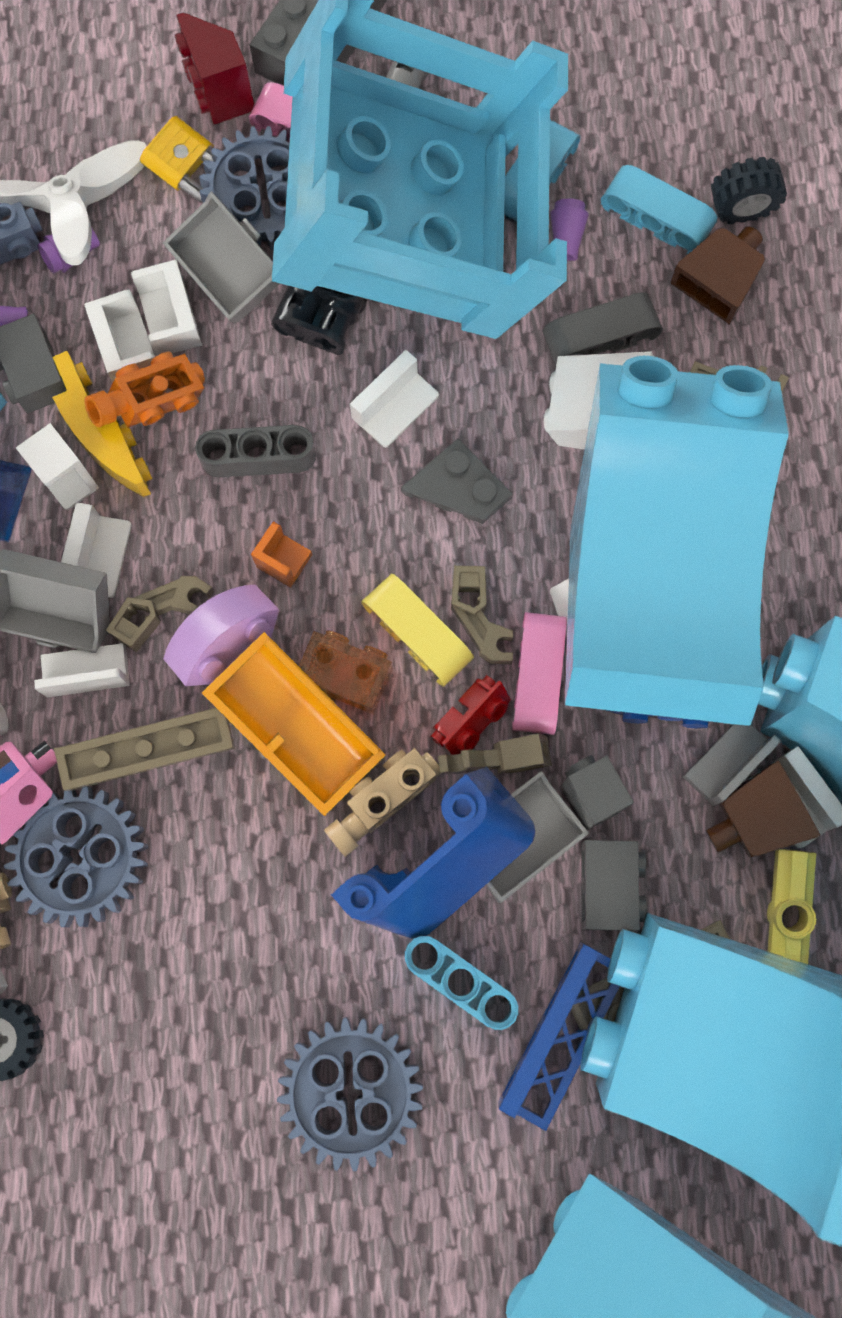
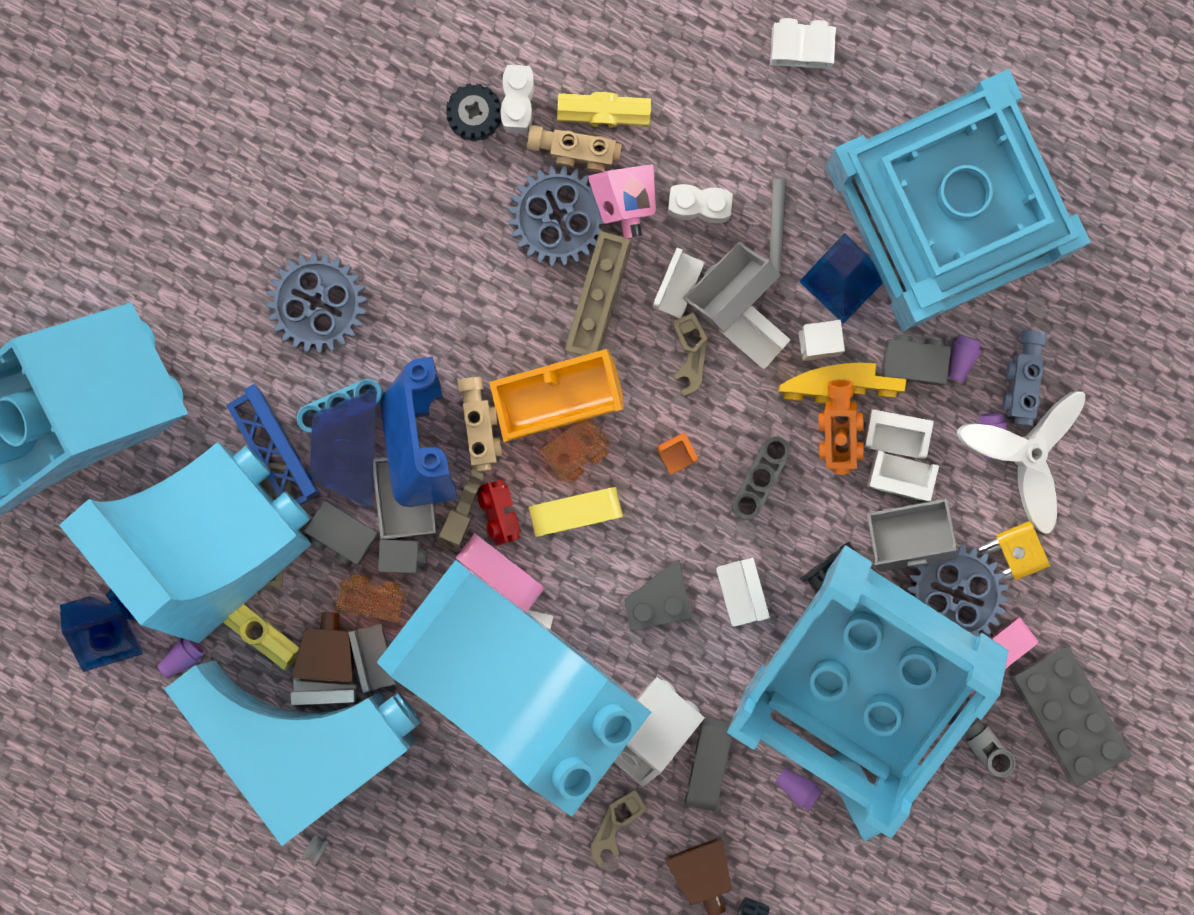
camera: 120 degrees right, 10 degrees up
(214, 68) = (1062, 613): dark red slope -> none
(219, 633) = (644, 383): lavender brick -> none
(482, 632) = (558, 552): dark tan piece -> none
(506, 943) = (345, 447): none -> clear blue wing
(659, 207) = (776, 862): medium azure beam -> none
(666, 799) = (371, 600): none -> clear orange brick

